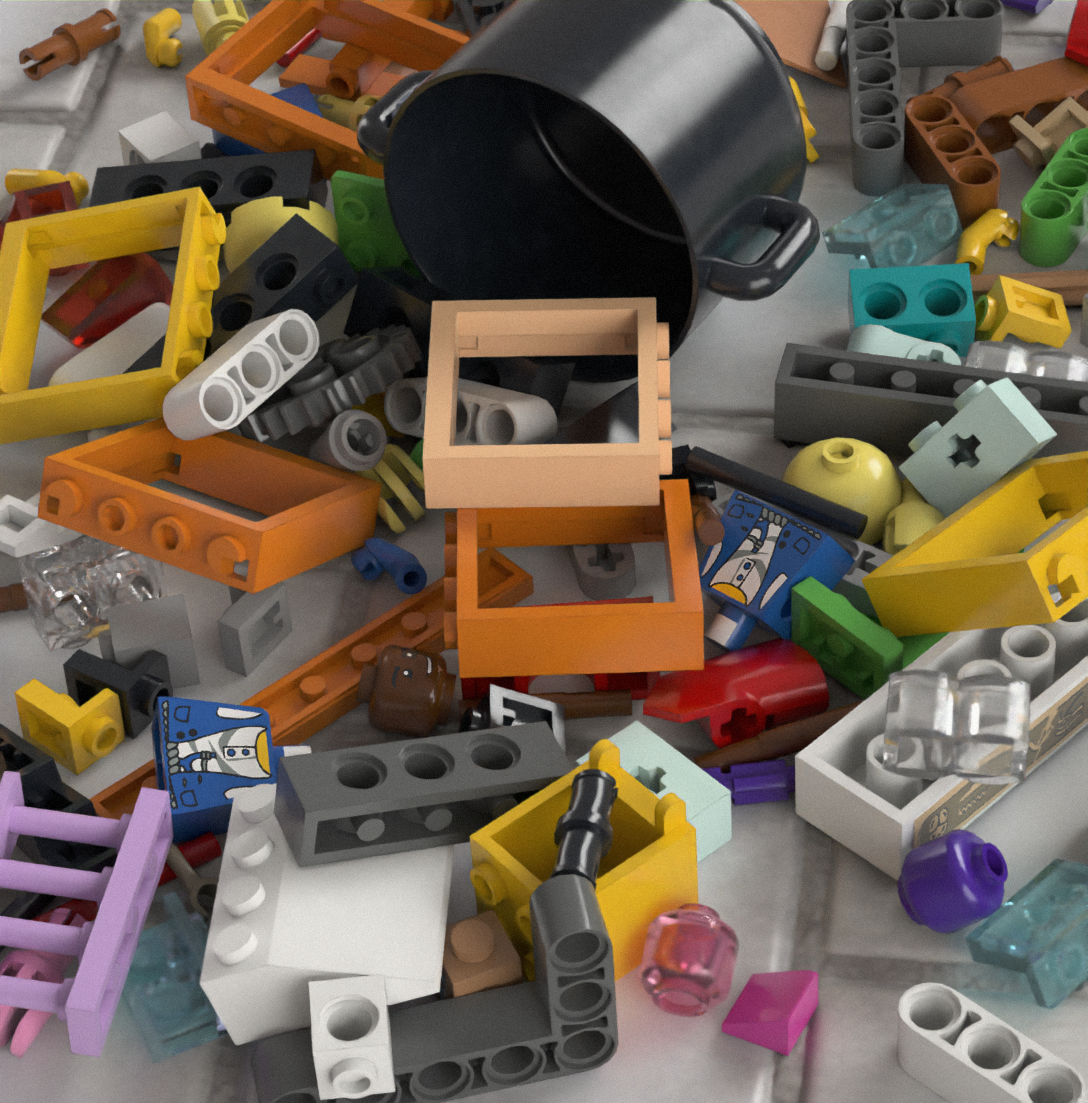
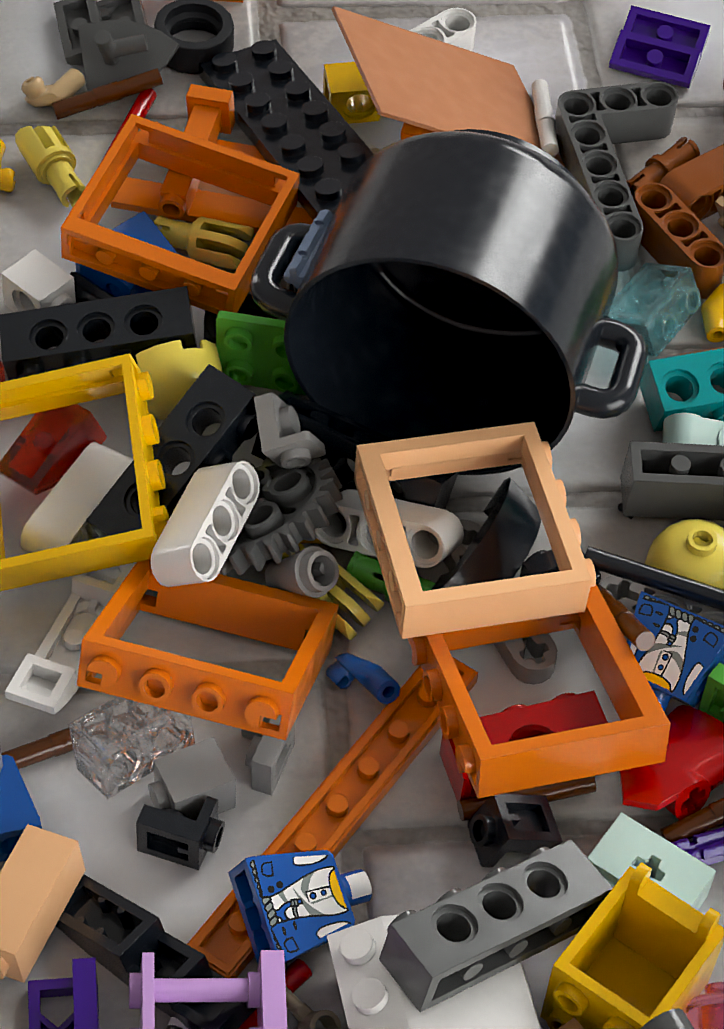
camera: 20 degrees left, 10 degrees up
(69, 732) = (145, 877): yellow bracket -> none
(363, 295) = (282, 436): none -> light grey bracket
(407, 691) = (419, 801): reddish brown head -> none
(584, 830) = (653, 957): black pin -> none

